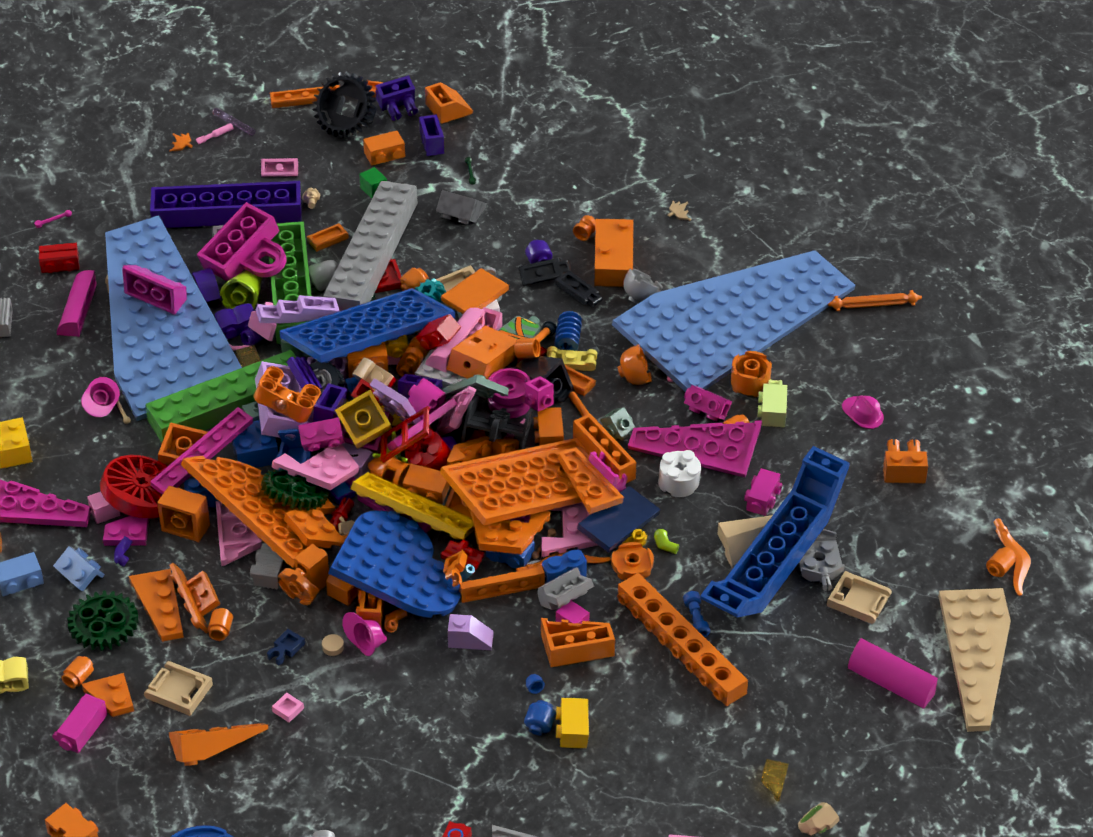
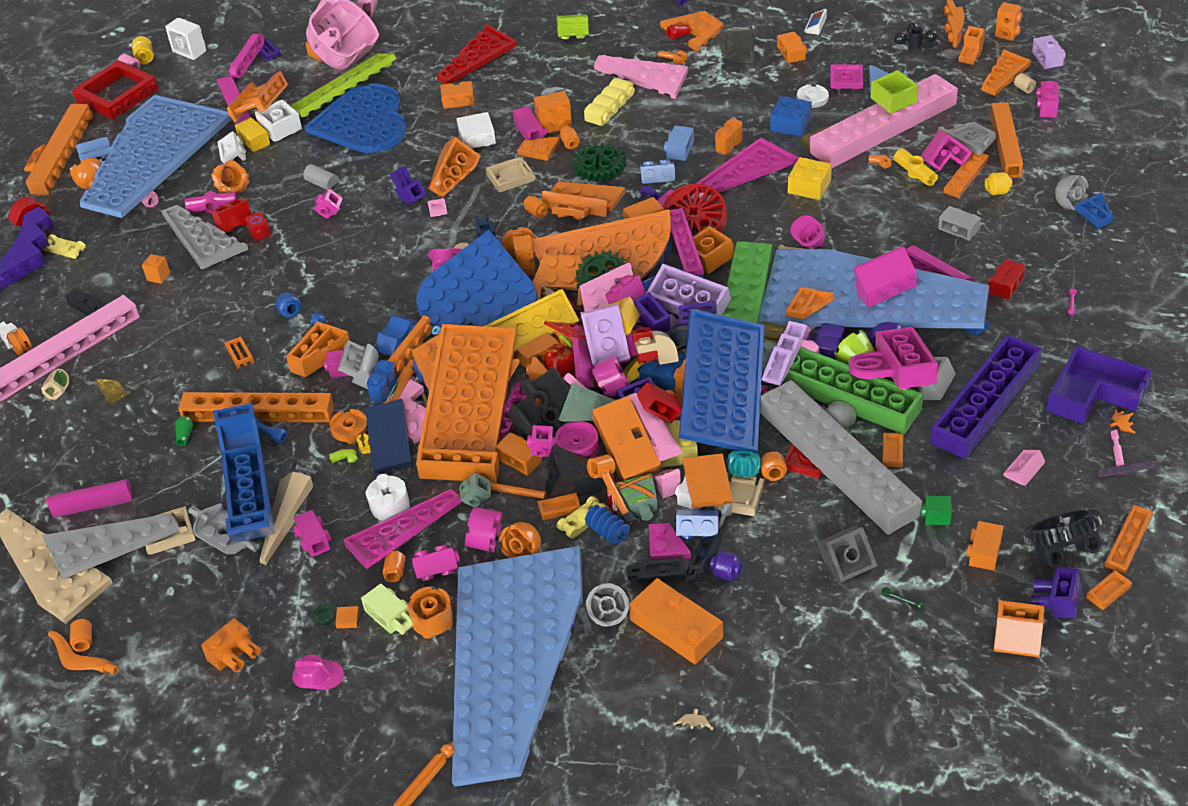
camera: 135 degrees right, 0 degrees up
(50, 697) = (553, 111): none -> orange brick
(133, 756) = (476, 130): none -> white brick
(163, 164) = (1094, 377): none -> dark purple piece
(212, 339) = (807, 302): none -> orange wing
(281, 748) = (405, 187): none -> dark purple brick
(283, 400) = (670, 274): orange beam -> none
(311, 197) = (956, 461): tan piece -> none
(370, 798) = (328, 203): none -> dark pink brick
(431, 135) = (970, 583): dark purple piece -> none
(454, 566) = (440, 316): orange plate -> none
(468, 633) = (392, 303): lavender slope -> none
(499, 600) = (394, 334): none -> blue brick
(520, 288) = (697, 523): none -> brick
(547, 303) = (665, 543): none -> dark pink wing
(573, 723) = (262, 314): yellow brick -> none
(585, 228) = (731, 625): orange wheel -> none
(588, 482) = (425, 424): orange wing -> none
(606, 471) = (428, 440): dark pink hinge -> none
(625, 729) = (242, 360): none -> orange tile
(650, 390) = (483, 529): none -> dark pink brick
(759, 672) = (183, 429): none -> green cone
(803, 427) = (347, 617): none -> orange tile
(815, 440) = (324, 614): none -> clear green tile
(923, 616) = (88, 547): none -> light grey wing

